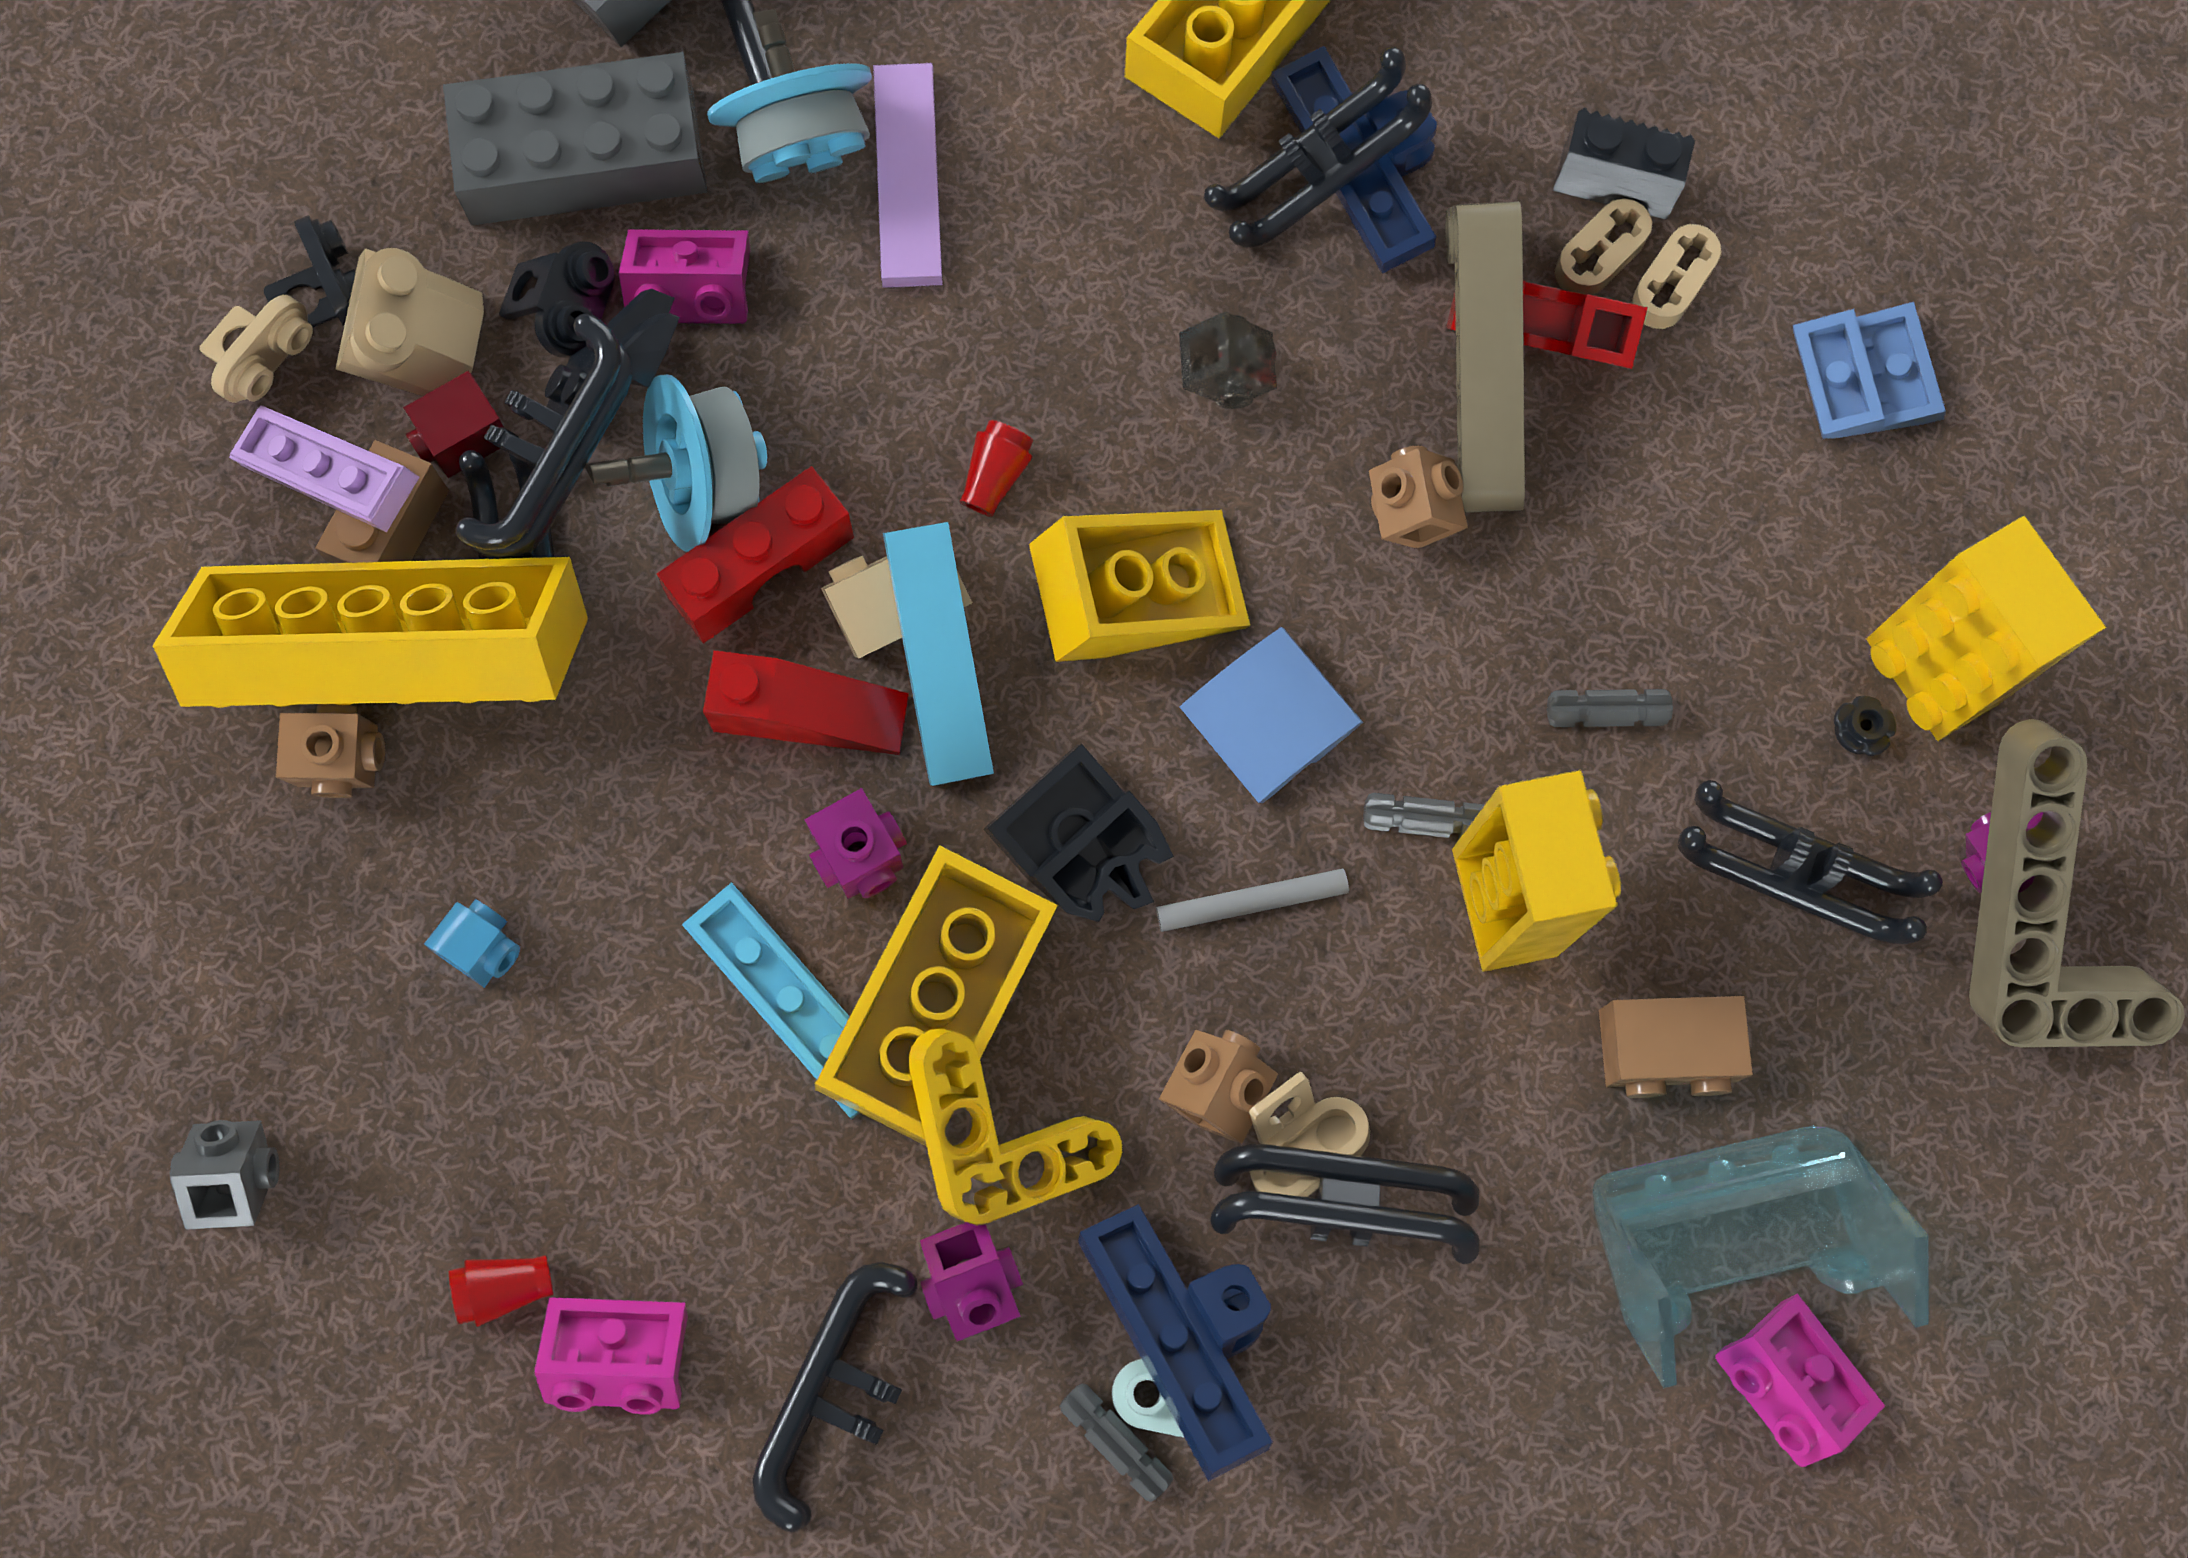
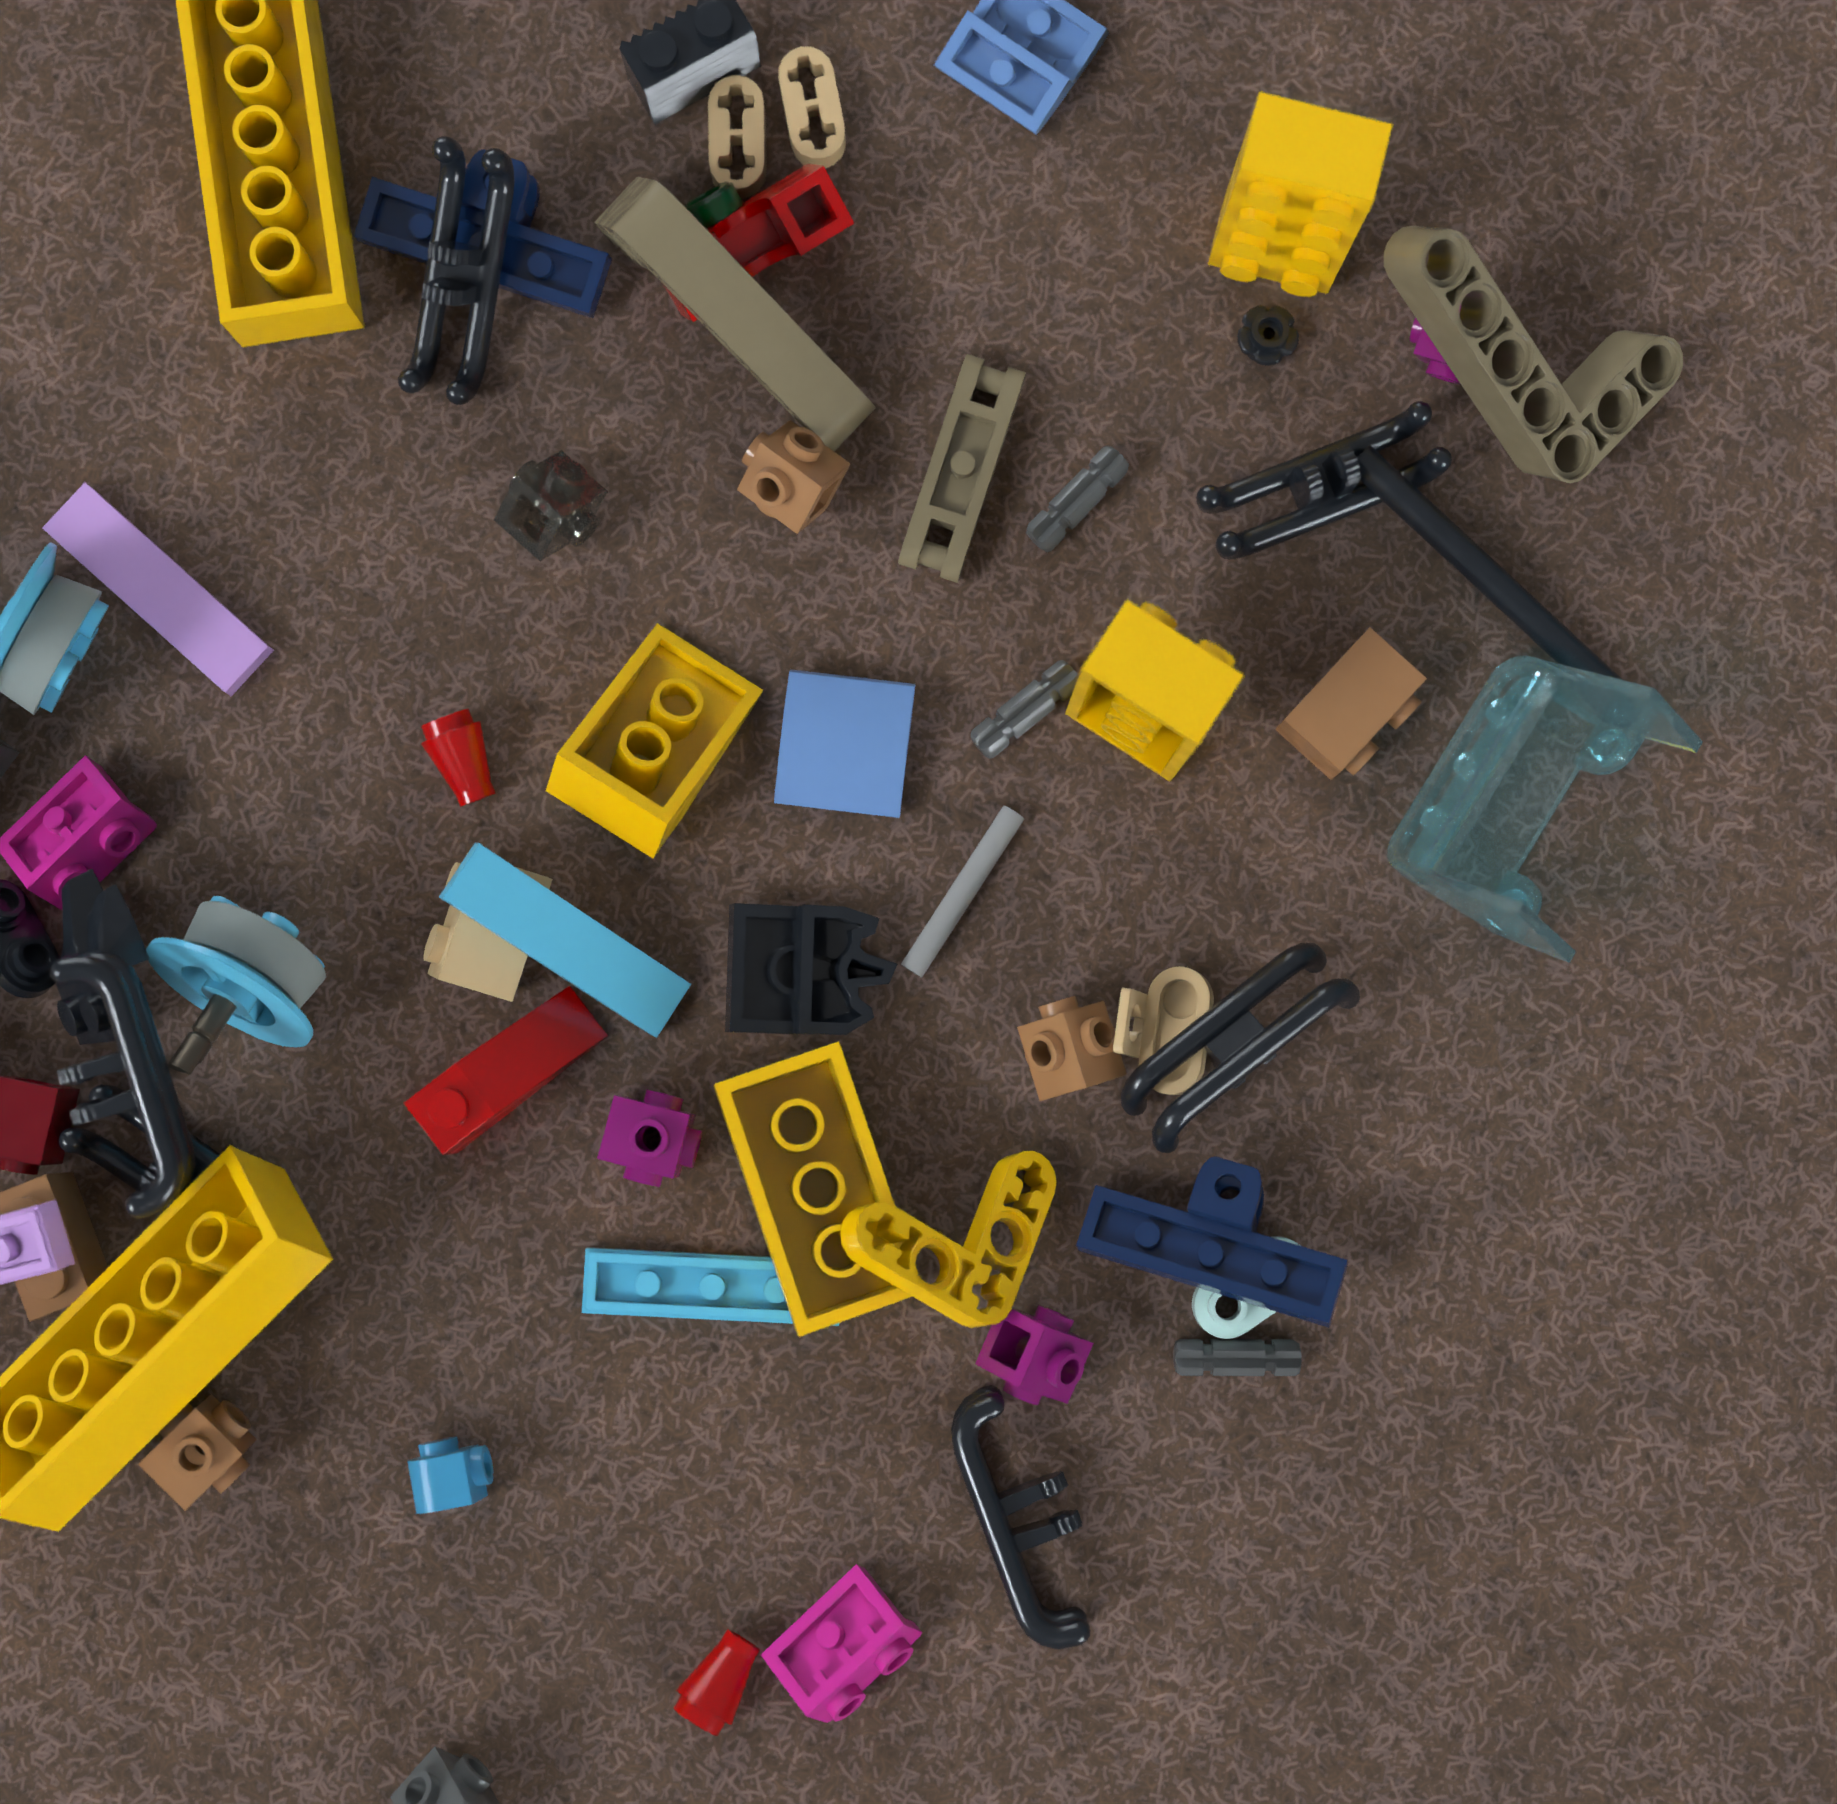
camera: 40 degrees left, 10 degrees up
(786, 529) = (348, 1019): red arch -> none
(1545, 272) = (715, 204): none -> dark green tile
(1545, 608) = (962, 467): none -> dark tan plate
(1800, 1383) = (1649, 858): dark pink bracket -> none
(1869, 1027) = (1476, 565): none -> black piece

